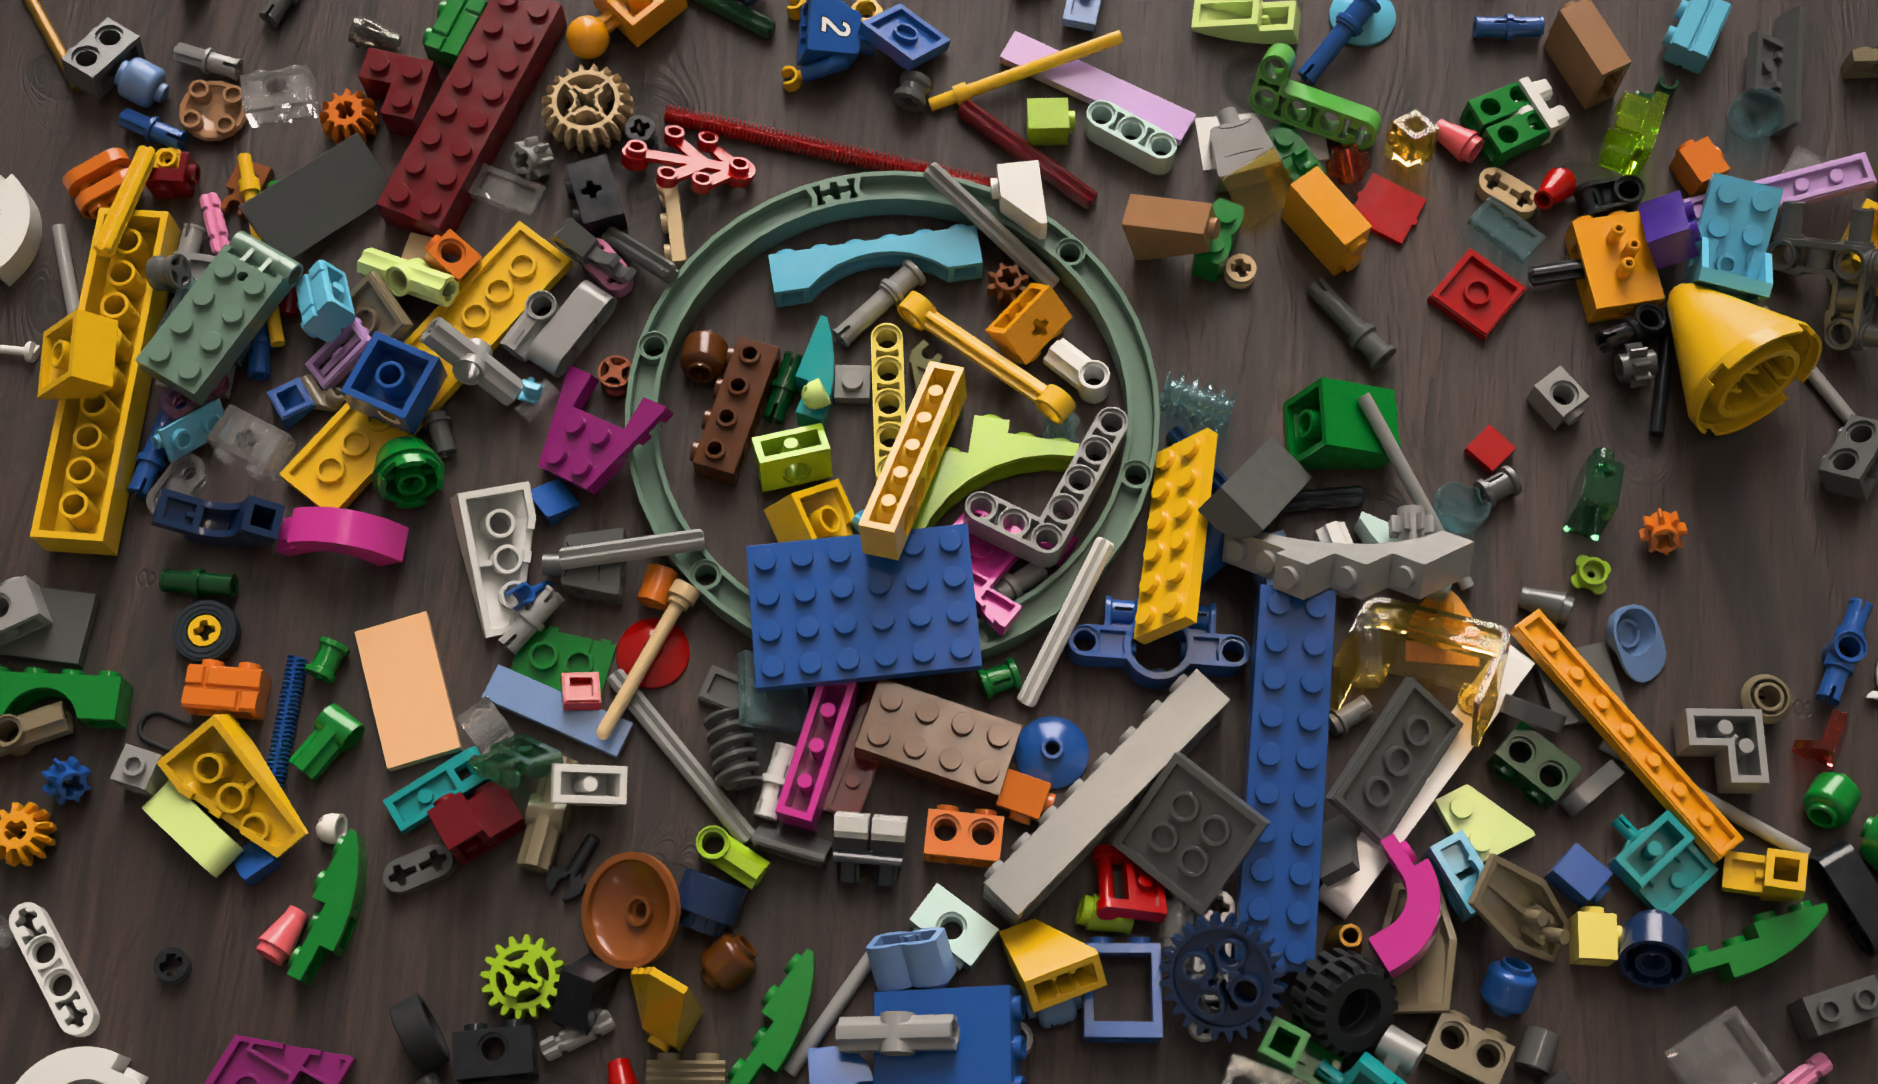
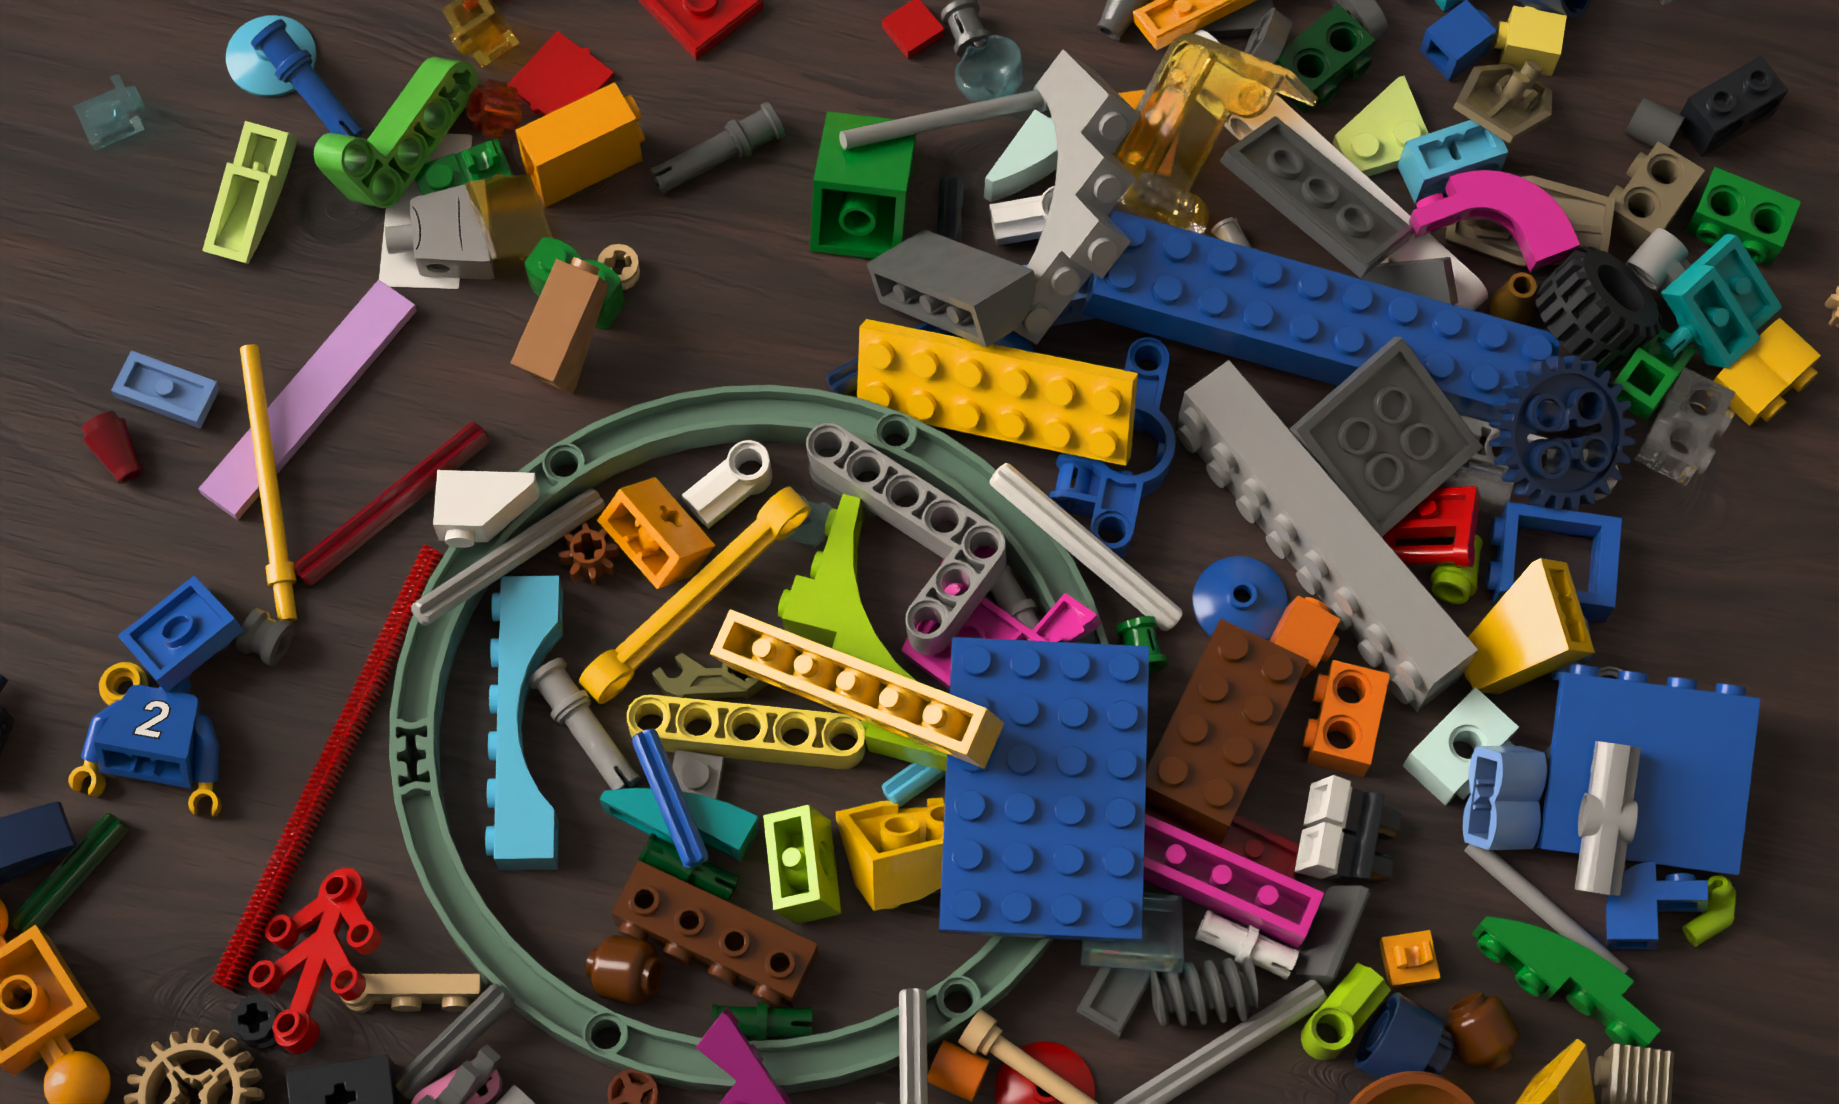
camera: 85 degrees left, 0 degrees up
(679, 452) = (768, 1021): none -> dark green pin
(781, 906) = (1409, 959): none -> light orange tile
(815, 395) = (725, 816): yellowish green hinge -> none
(824, 357) = (670, 798): none -> blue axle
(1049, 121) = (352, 465): lime brick -> none
(1123, 123) = (396, 386): light aqua beam -> none
(1197, 400) = (797, 341): clear light blue piece -> none
(1410, 523) = (1023, 120): light grey gear -> none
(1508, 986) = (1583, 137): blue head -> none

